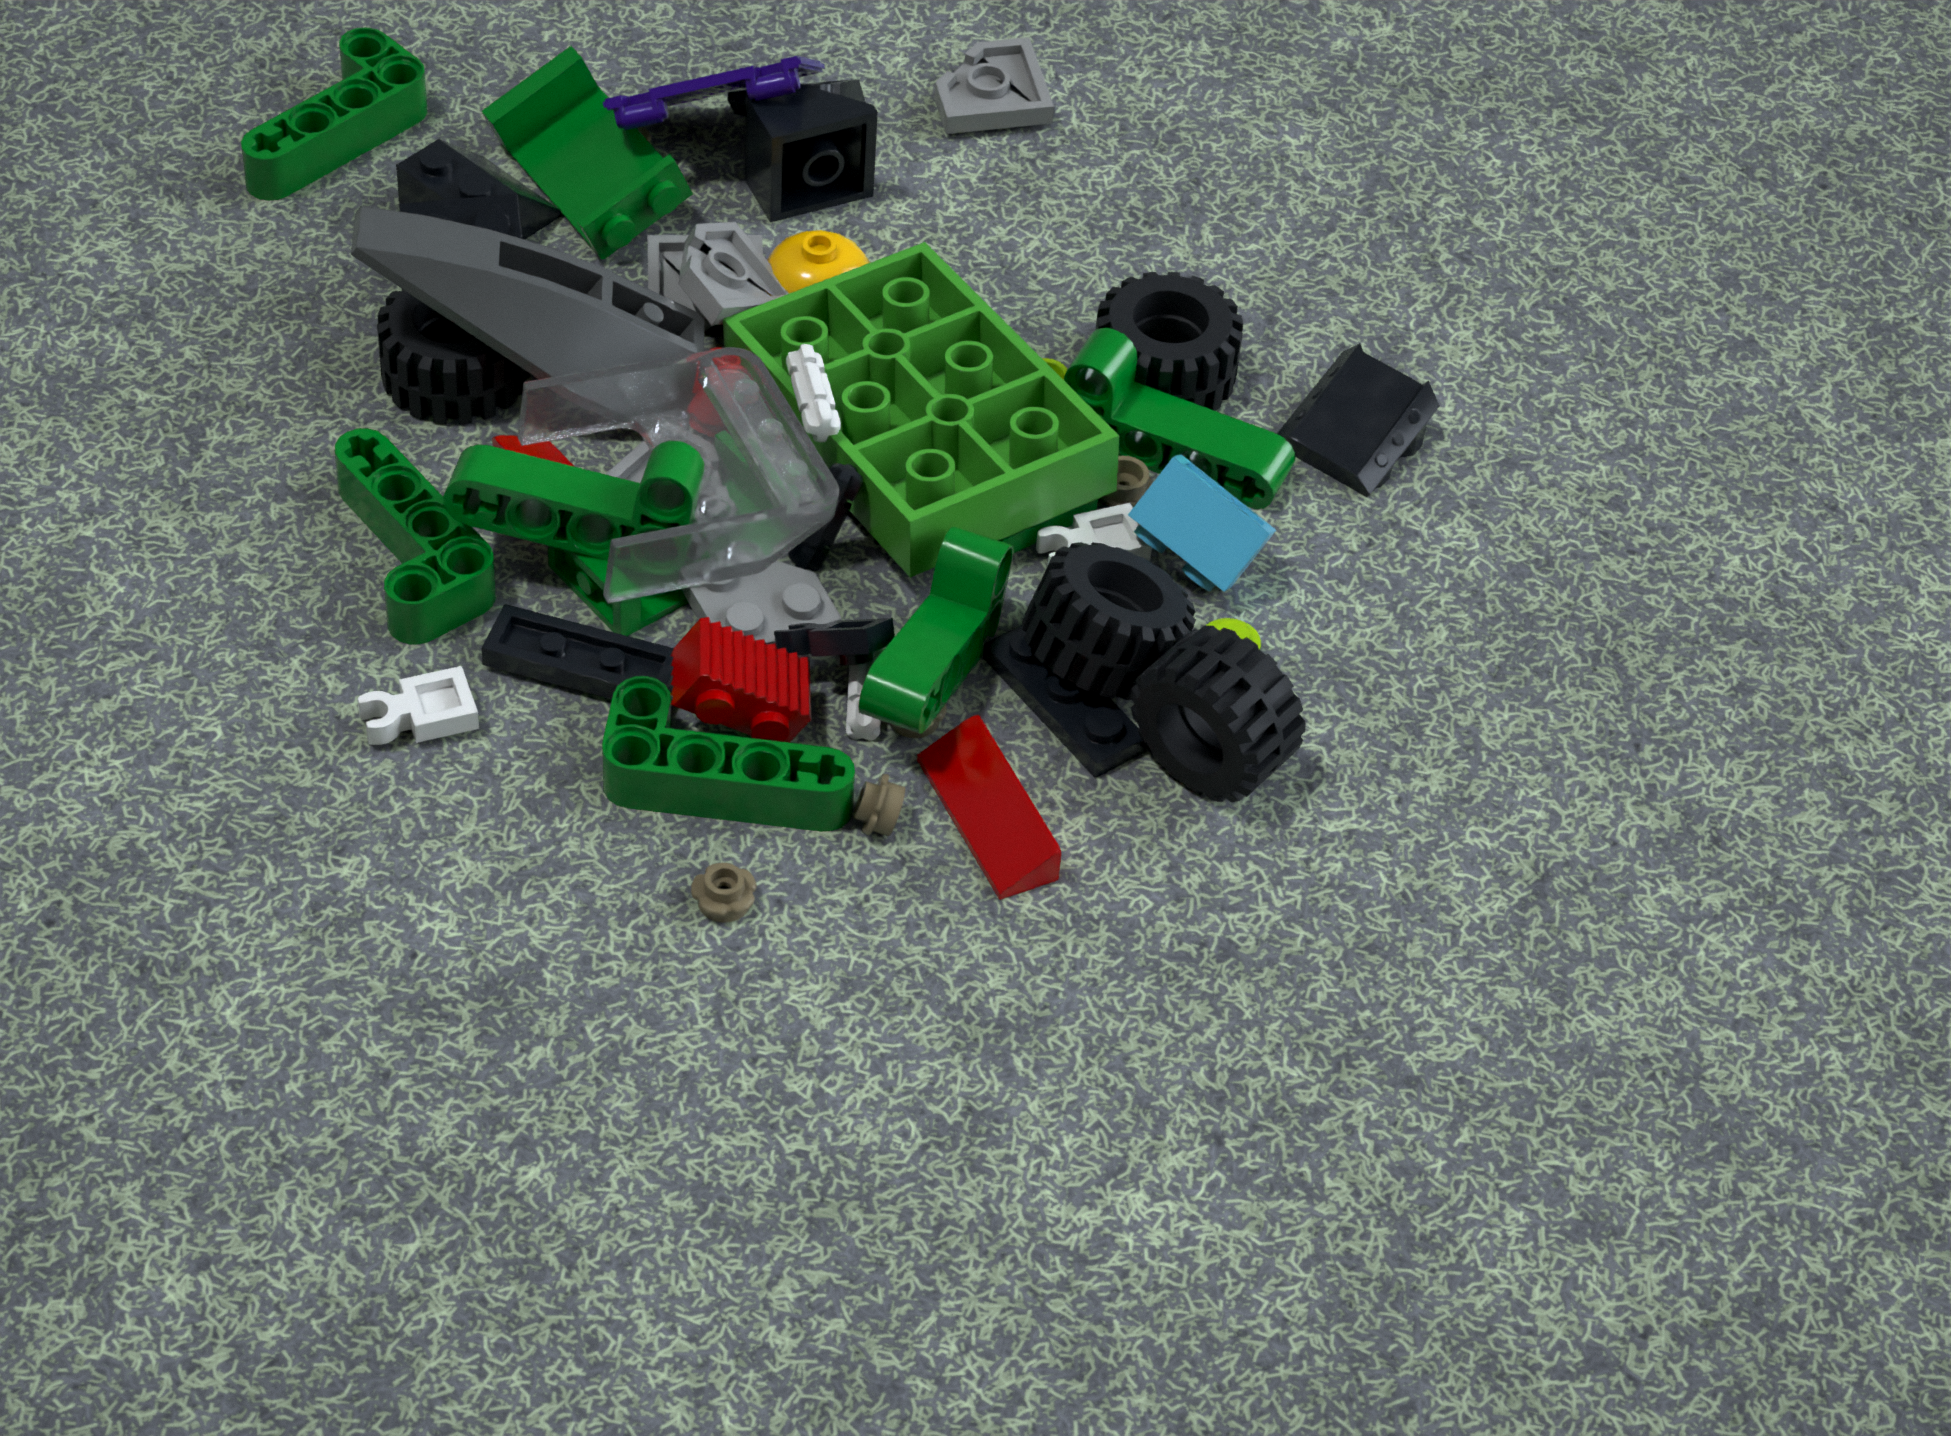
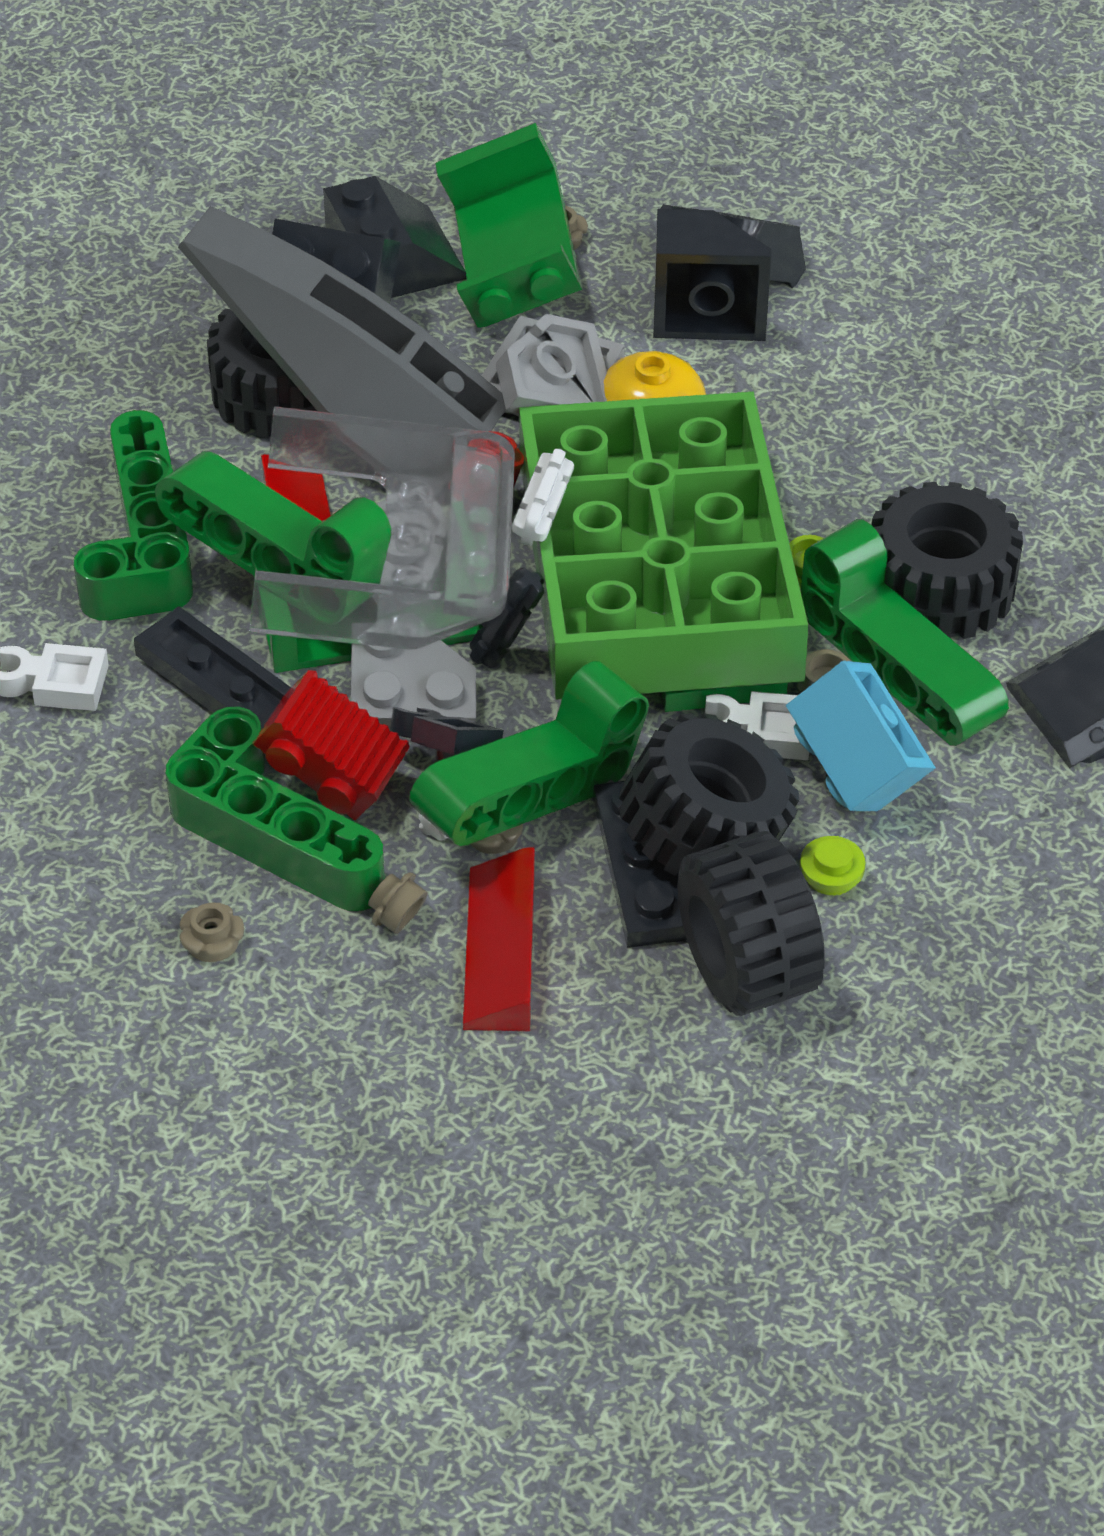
camera: 30 degrees right, 0 degrees up
(374, 102) = (315, 140): green beam -> none
(760, 83) = (664, 196): dark purple window -> none
(994, 89) = (937, 275): light grey plate -> none

